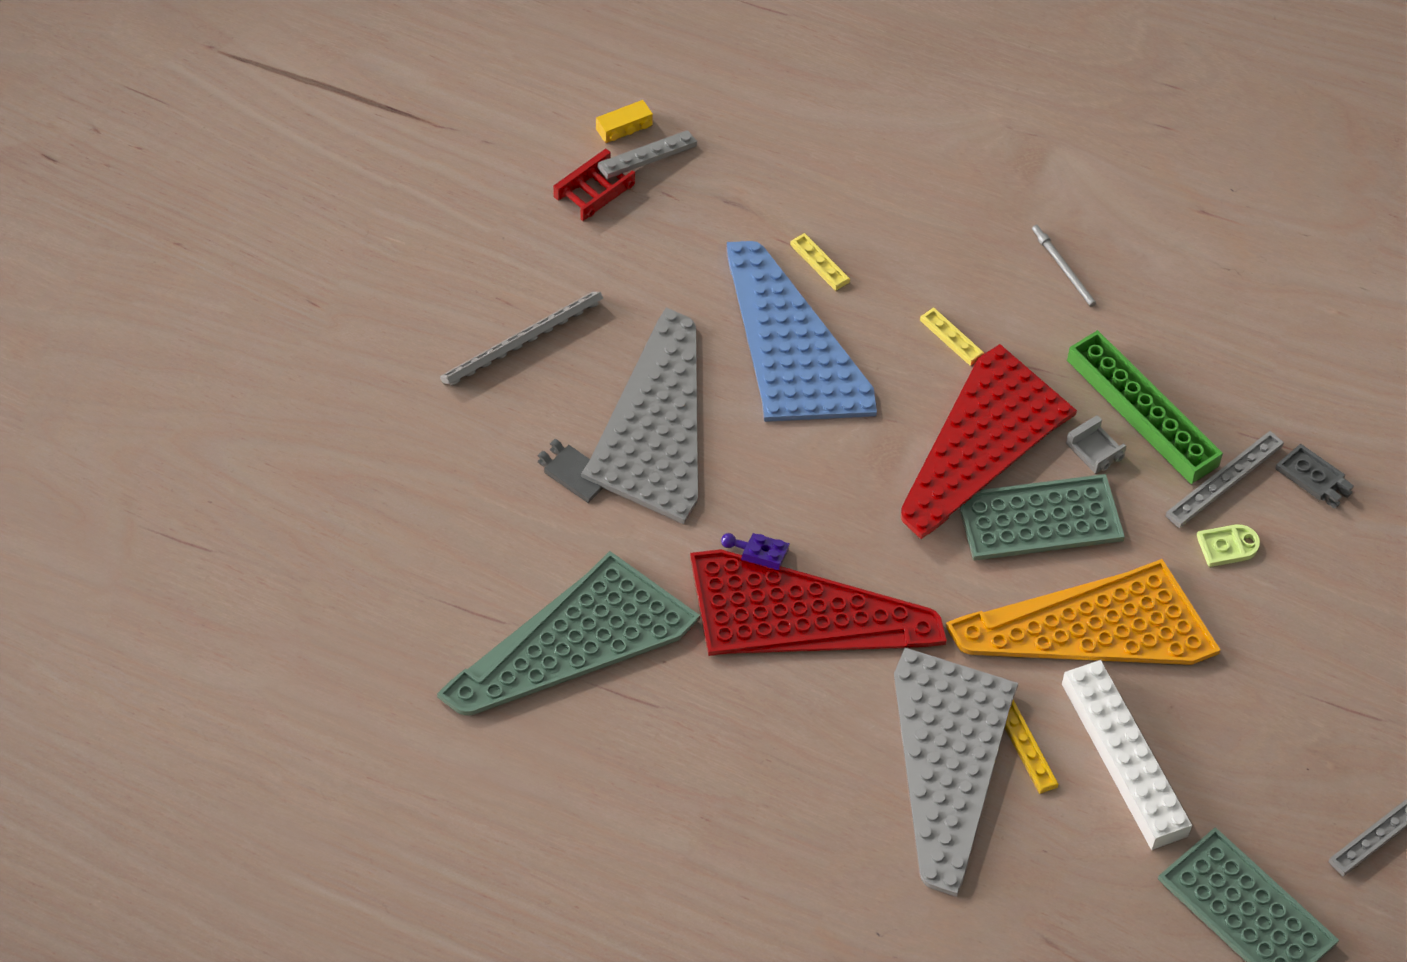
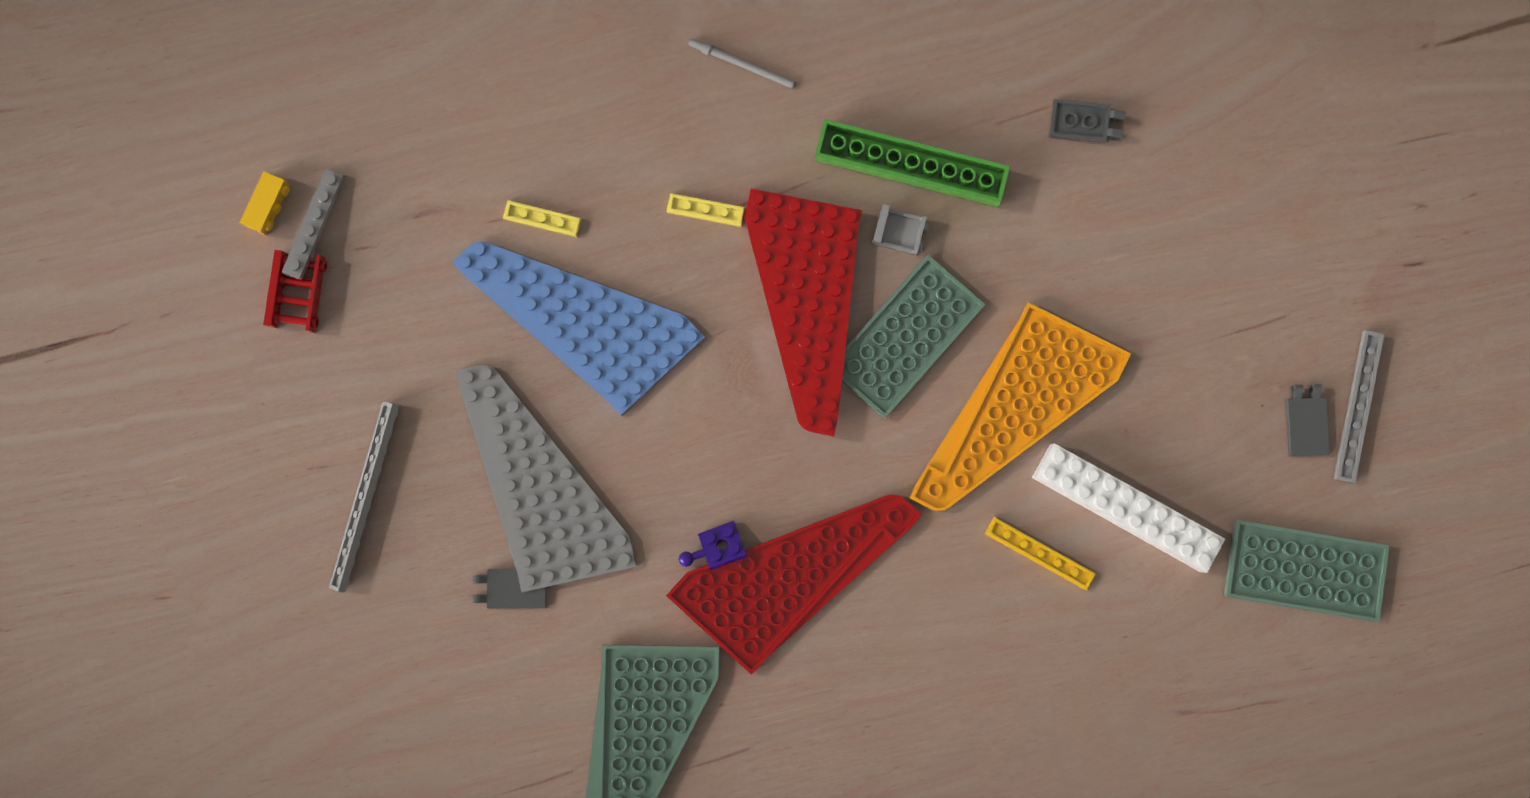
camera: 40 degrees left, 30 degrees up
(950, 744) = (989, 599): light grey wing -> none
(1224, 479) = (1020, 182): light grey plate -> none
(1227, 544) = (1064, 244): yellowish green tile -> none
(1337, 805) = (1307, 422): none -> dark grey tile

